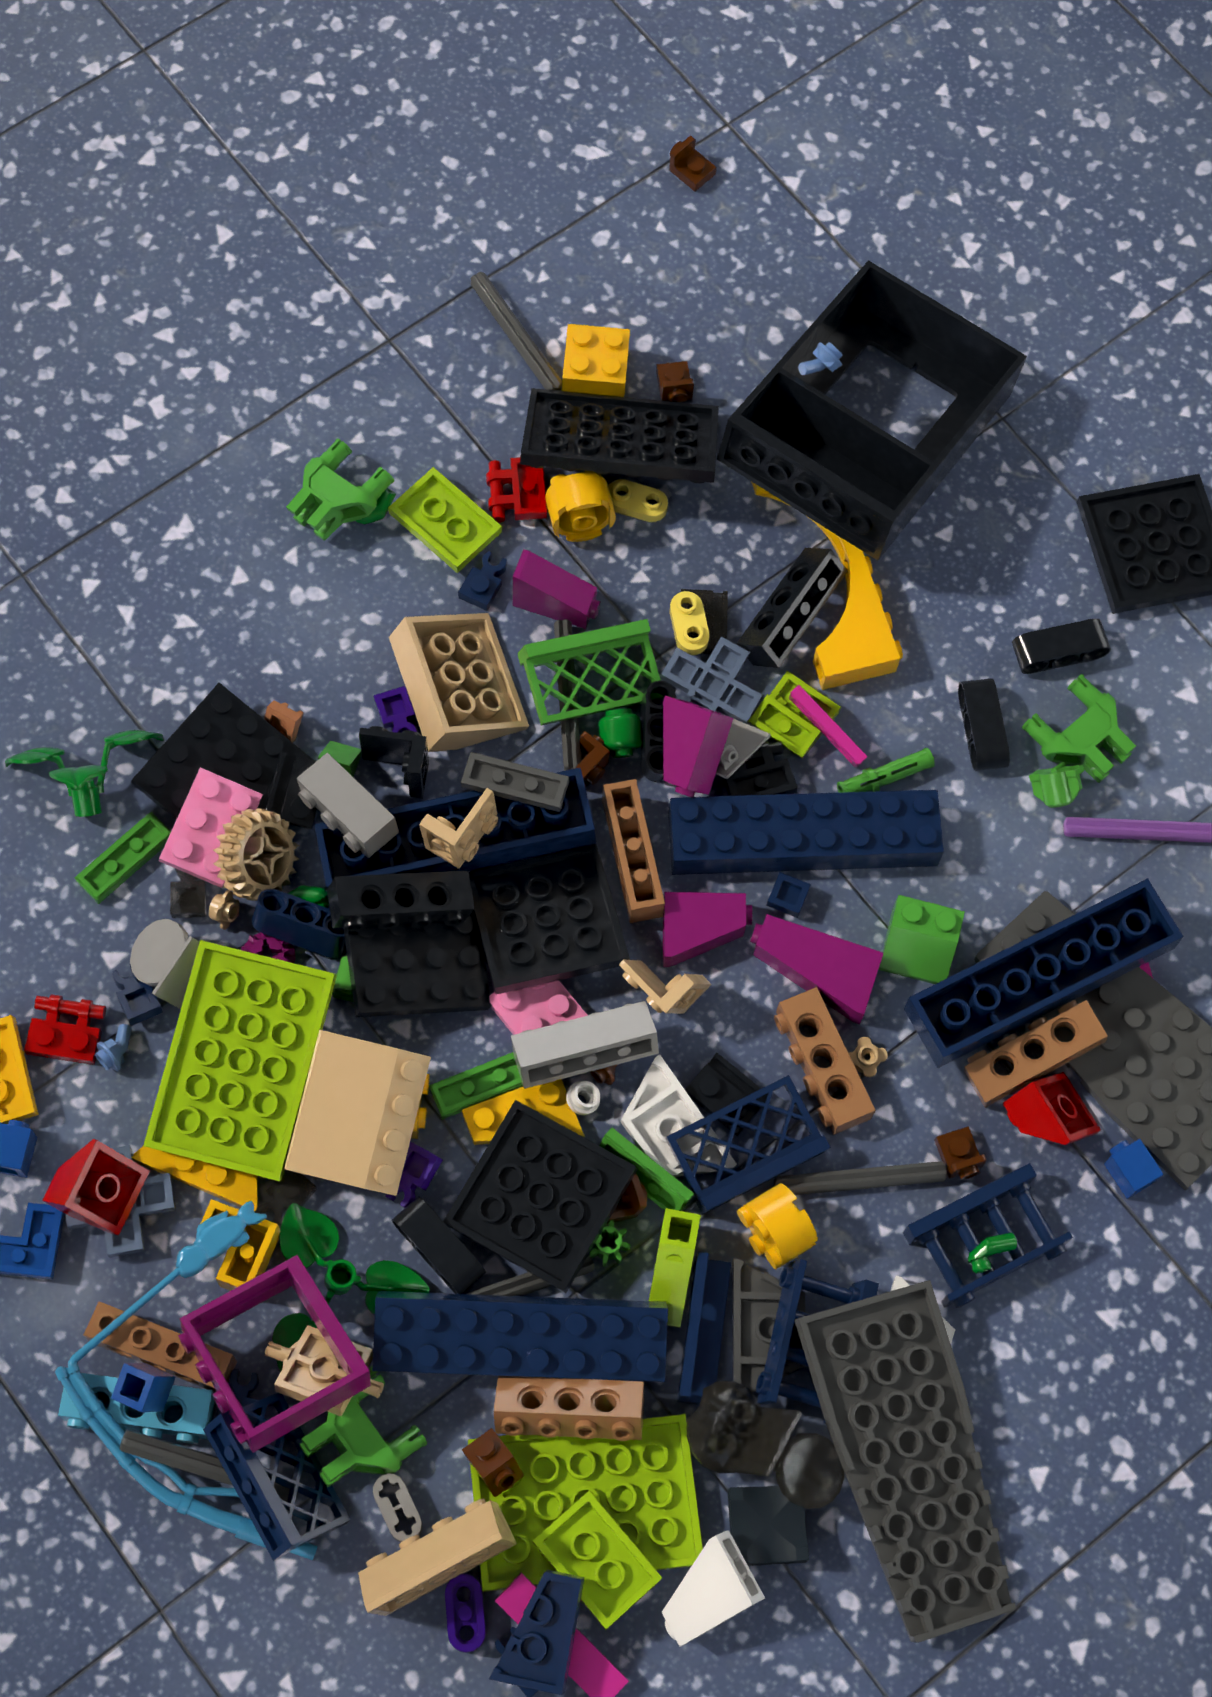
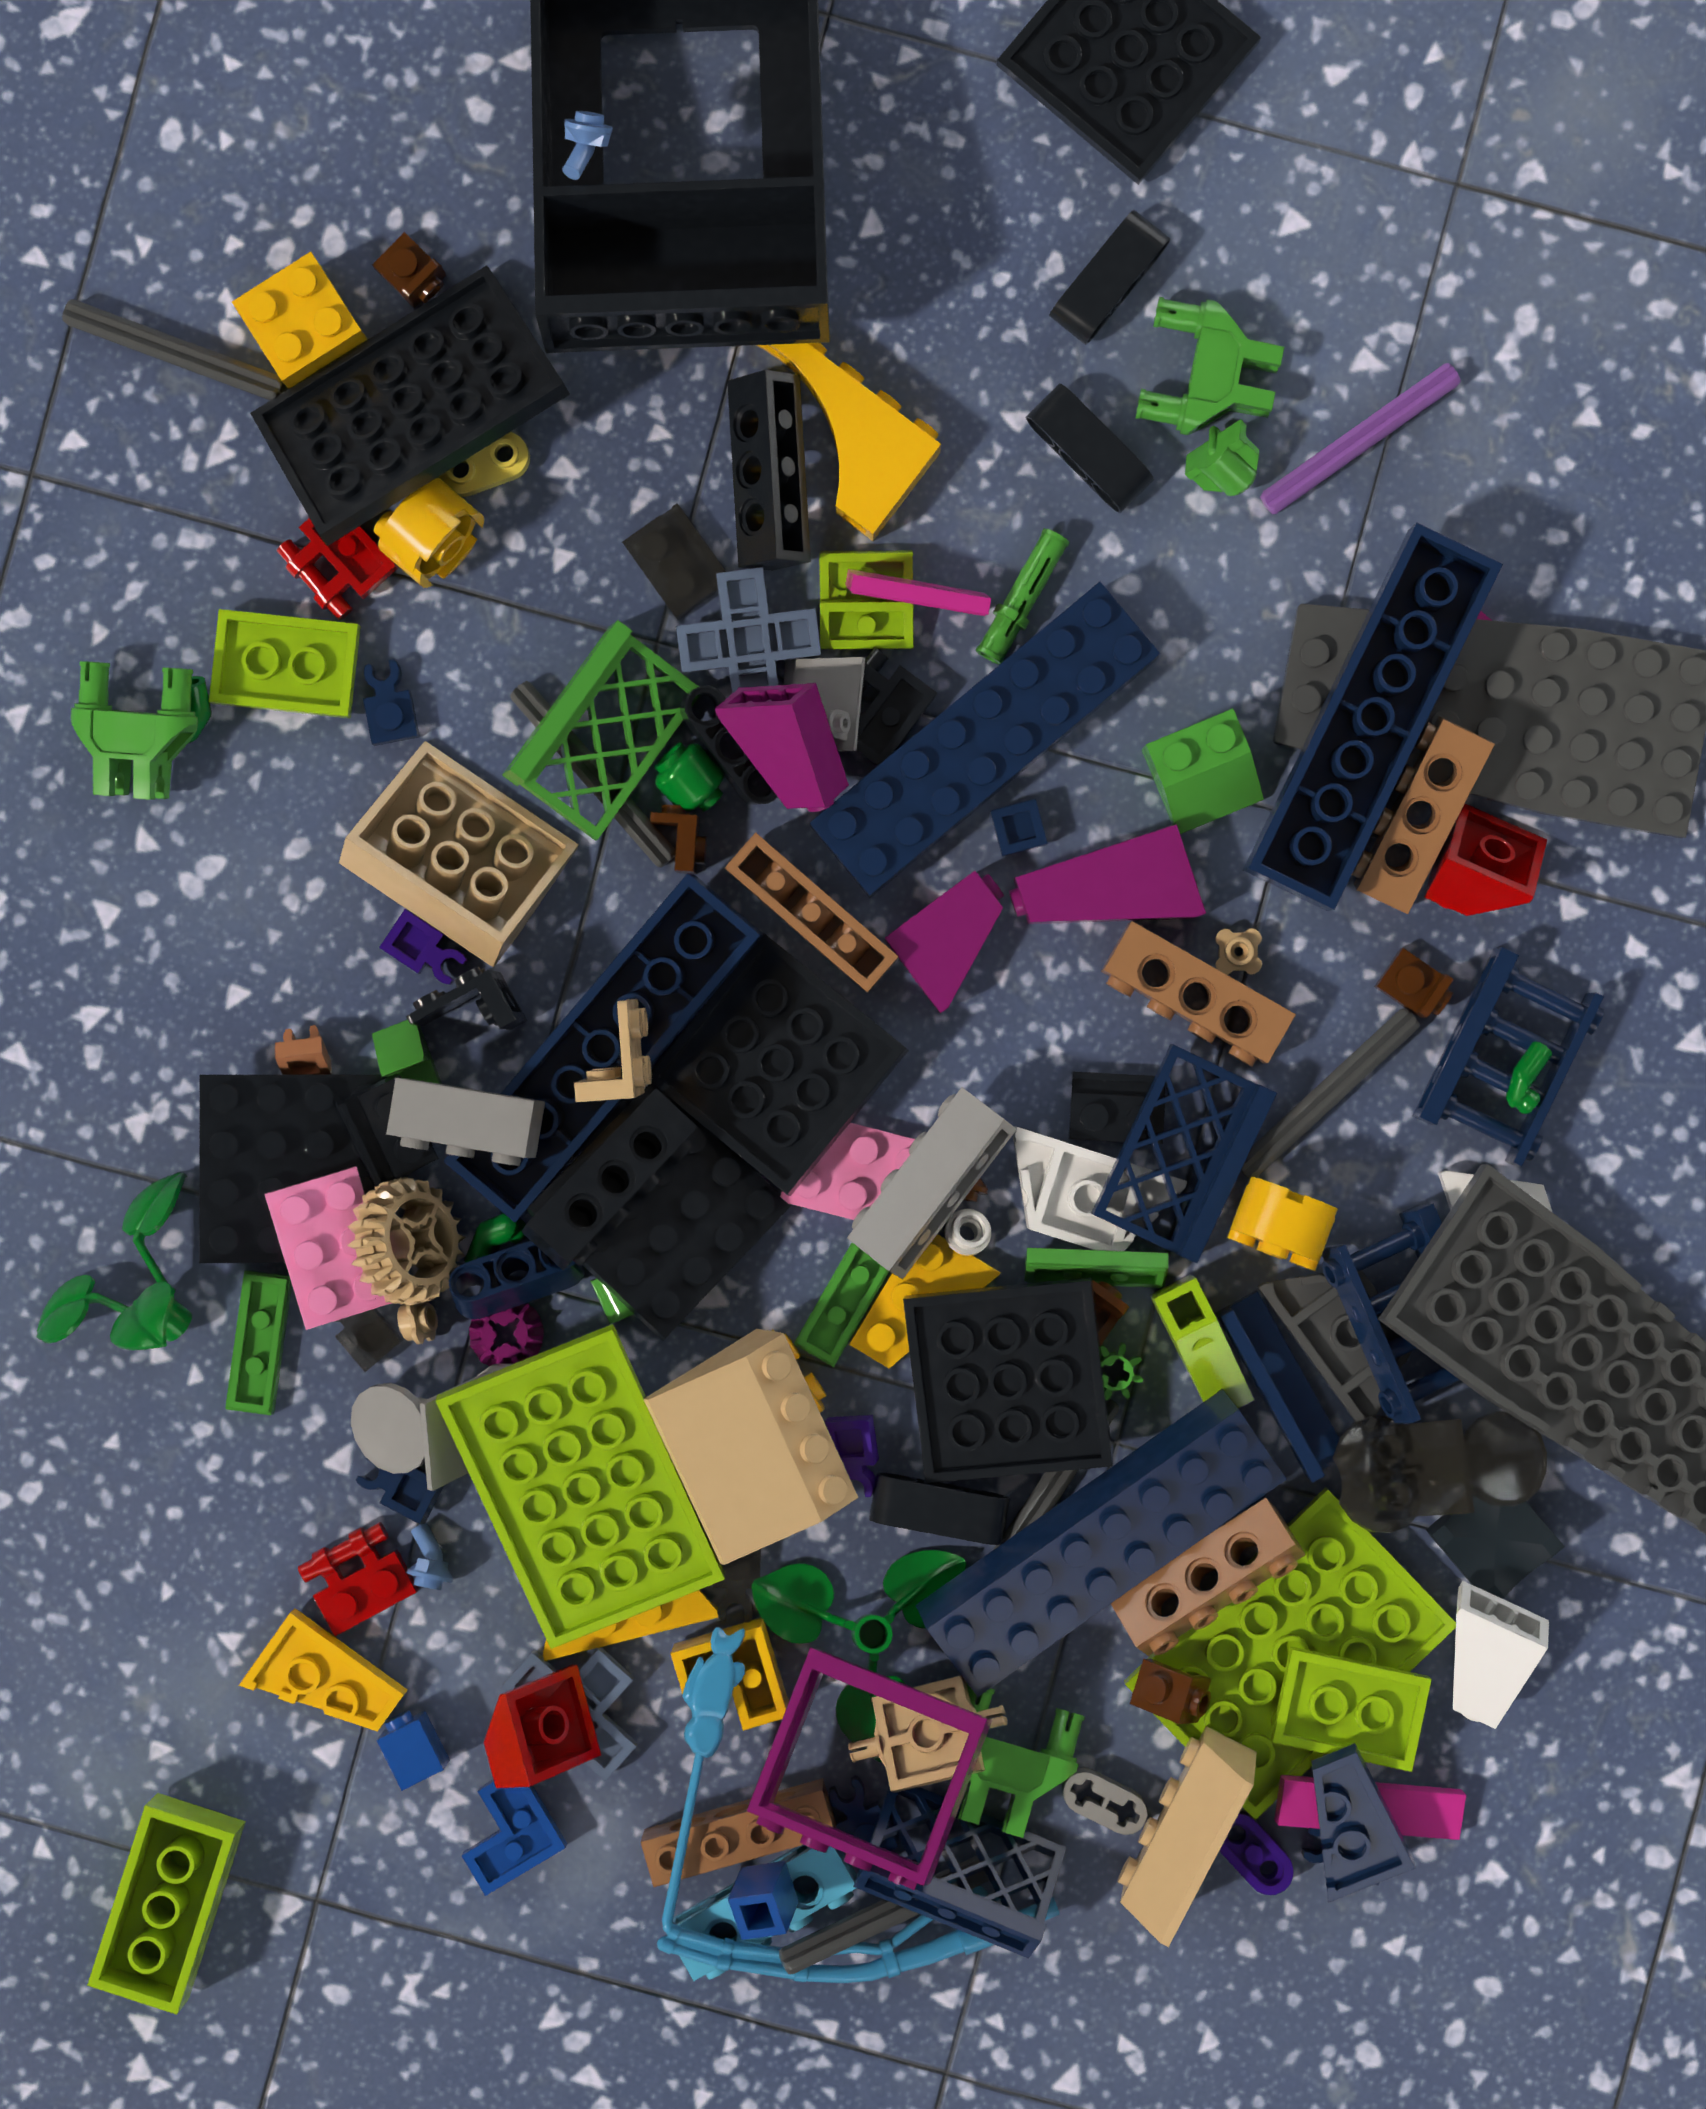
camera: 30 degrees left, 20 degrees up
(515, 781) = (630, 950): dark grey plate -> none
(553, 591) = (484, 663): magenta slope -> none
(671, 998) = (958, 1056): tan bracket -> none
(689, 621) = (666, 583): light yellow plate -> none
(1132, 1167) = (1612, 861): blue brick -> none

